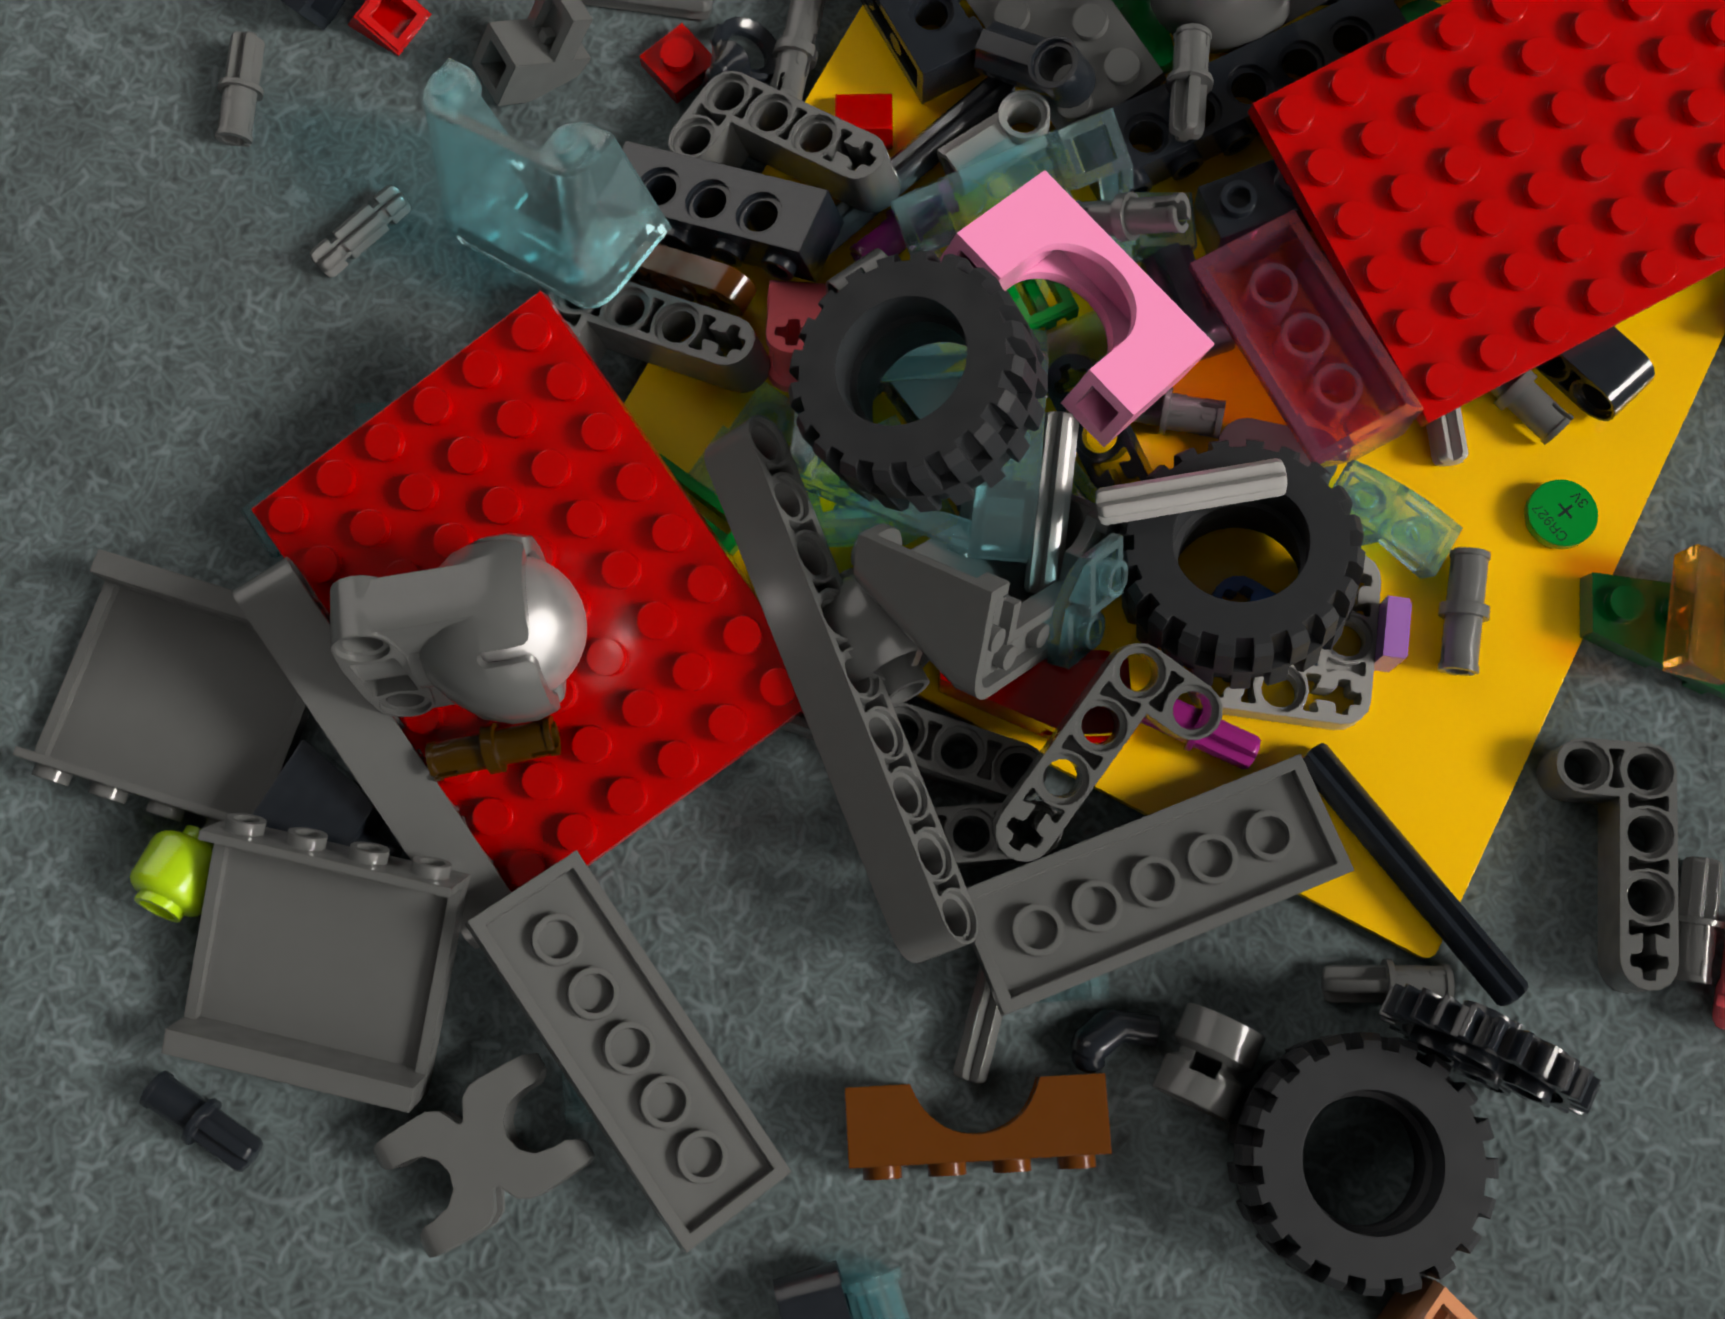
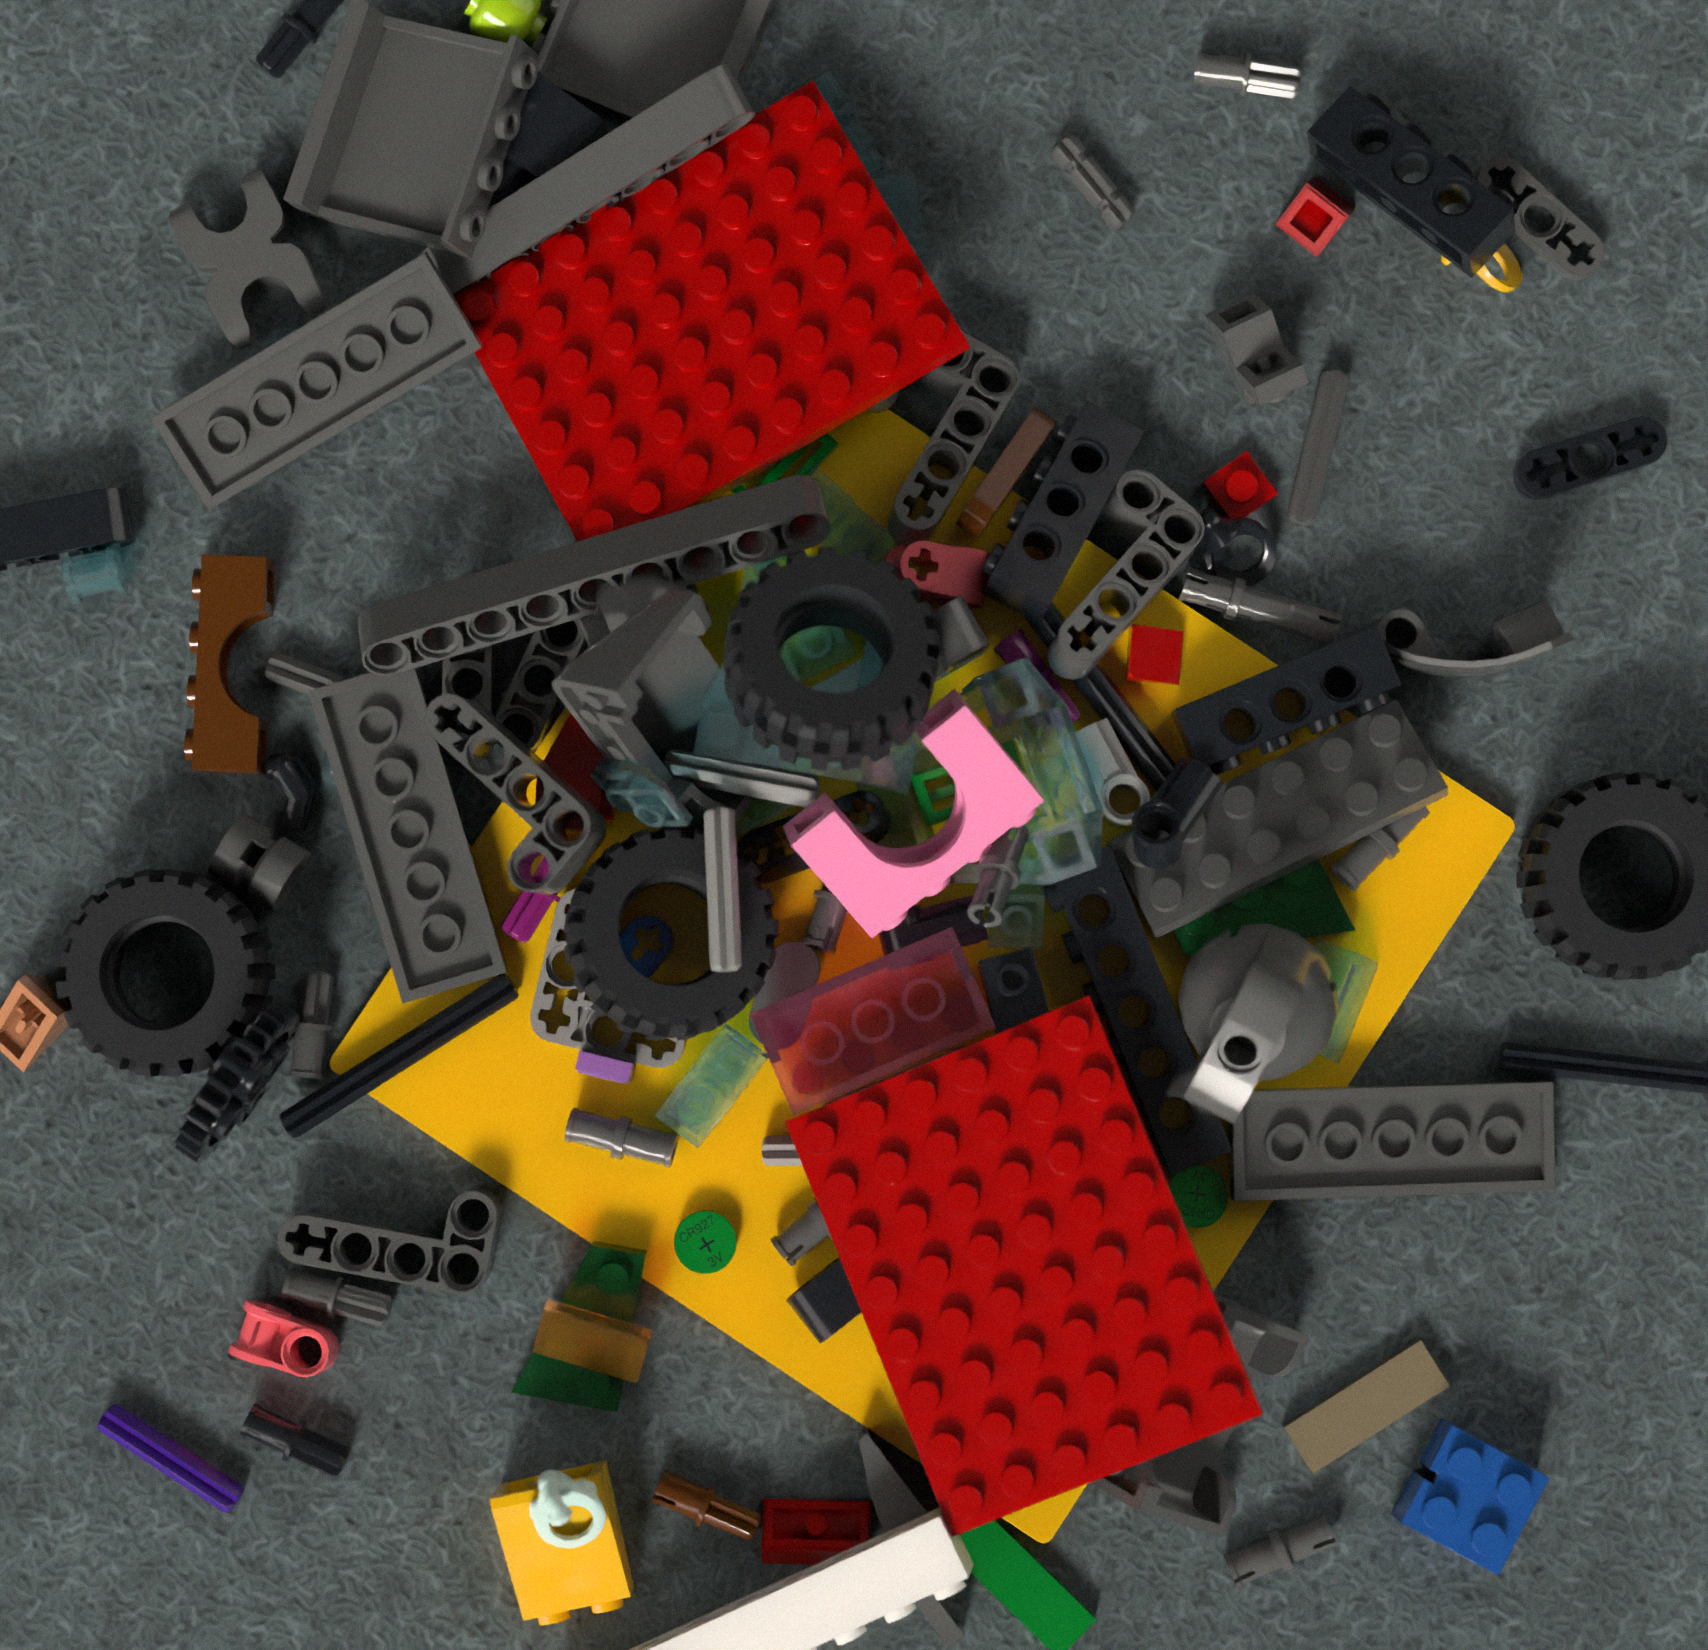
camera: 95 degrees right, 10 degrees up
(477, 632) = (651, 279): dark grey piece -> none
(493, 748) = (572, 281): dark brown pin -> none
(554, 215) = (1045, 374): clear light blue windscreen -> none
(1189, 81) = (1133, 950): dark grey axle -> none

